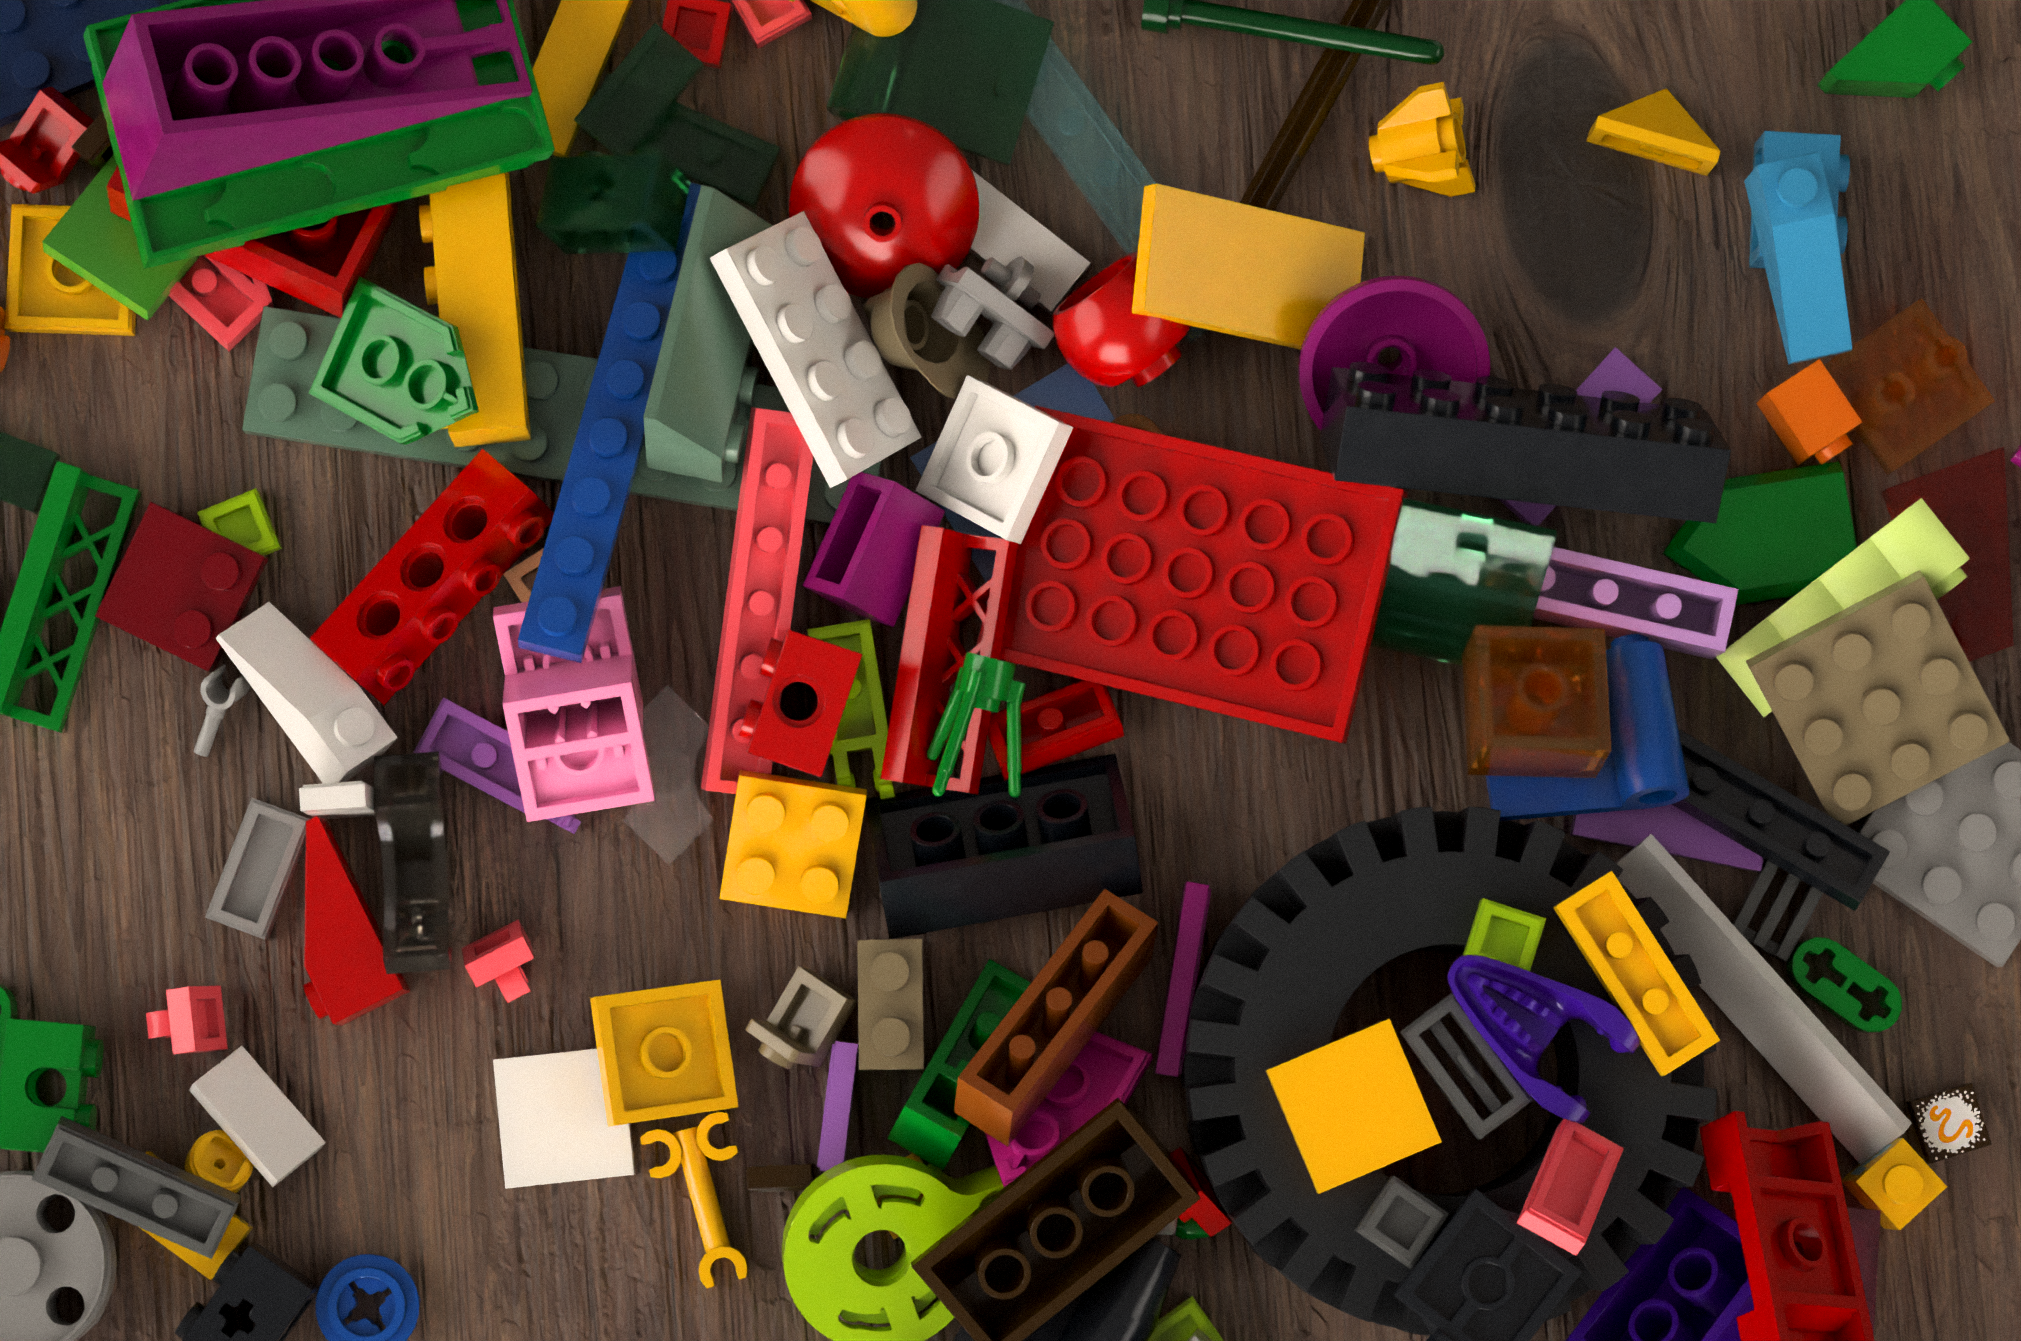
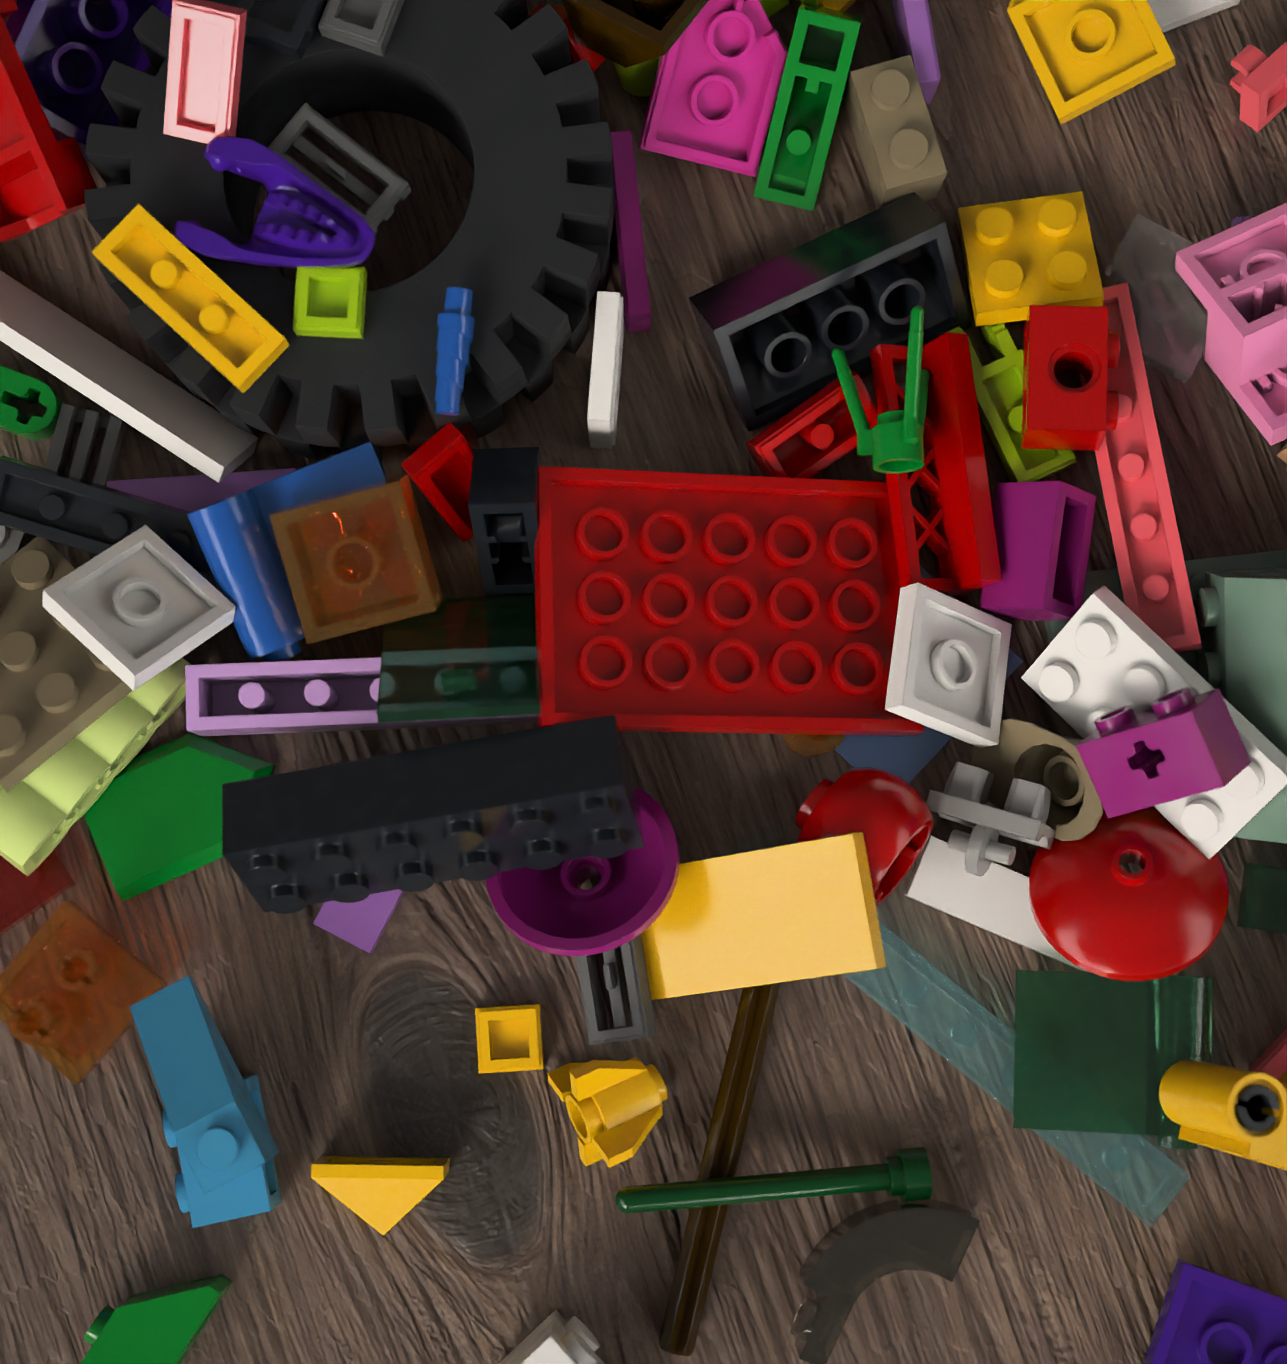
camera: 170 degrees right, 0 degrees up
(803, 1021) = (972, 97): dark tan bracket -> none
(832, 308) = (1163, 752): none -> magenta brick
(1055, 1017) = (741, 145): dark orange brick -> none
(1246, 834) = (605, 370): none -> white tile
(1353, 1106) = (436, 105): yellow tile -> none
(1373, 212) = (637, 989): none -> dark grey tile
(1382, 714) = (505, 517): none -> black brick
(1397, 862) = (453, 349): none -> blue animal
(1420, 764) = (444, 476): none -> red tile
(1501, 234) = (509, 1038): none -> yellow tile
(1755, 712) = (138, 607): none -> white plate
(1810, 414) = (159, 936): orange brick -> none

